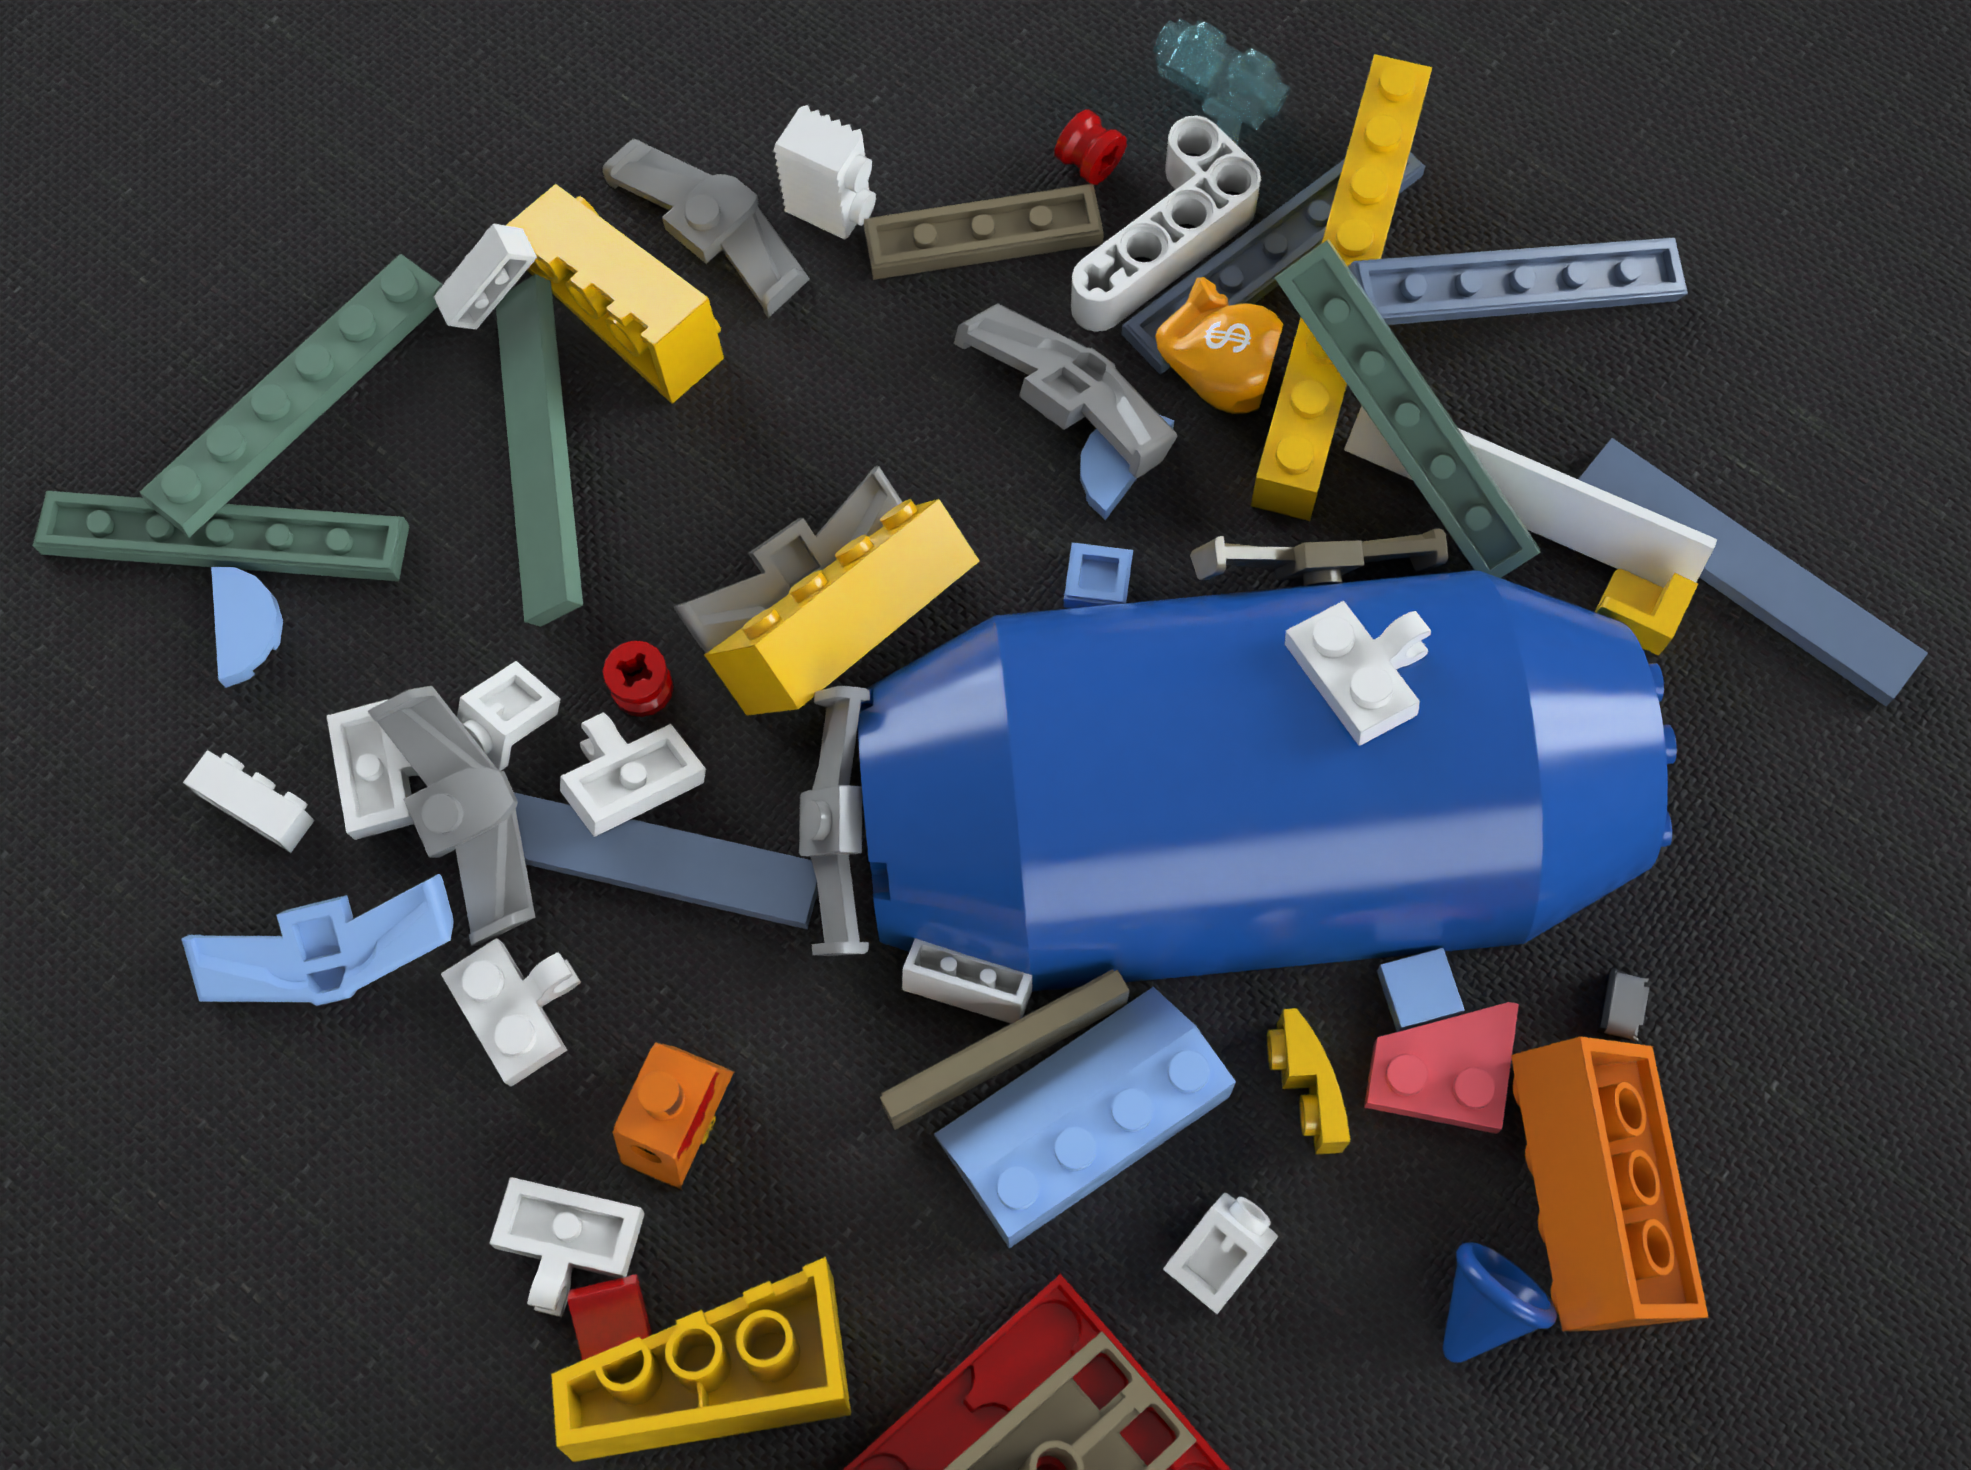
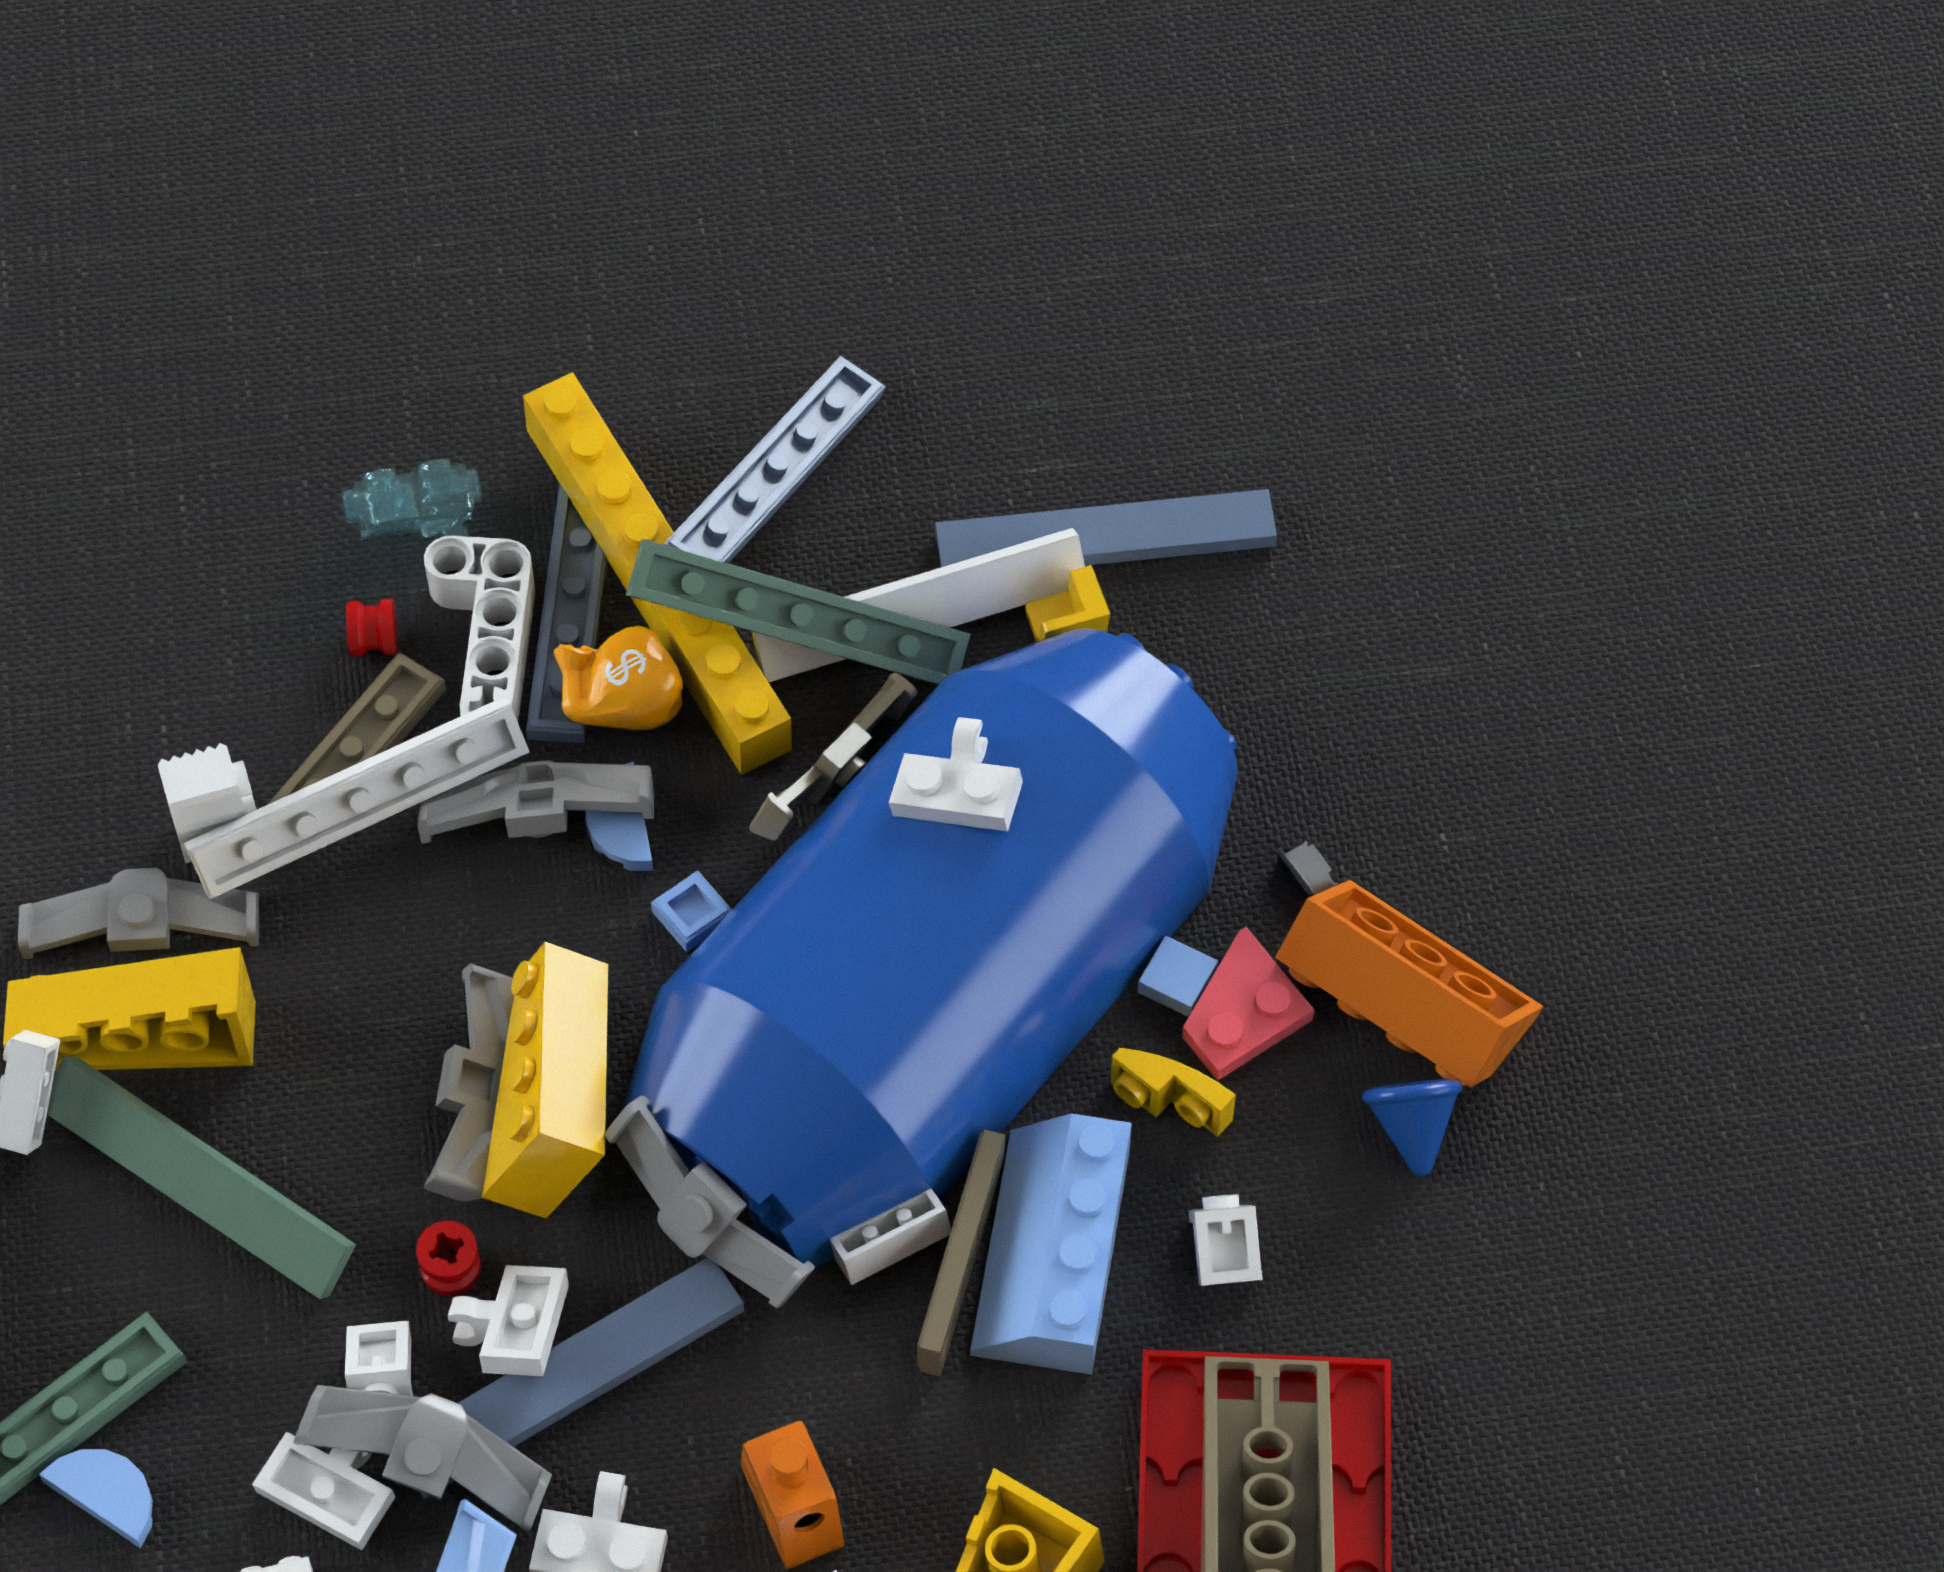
camera: 50 degrees left, 10 degrees down
(938, 265) = (356, 797): none -> white tile

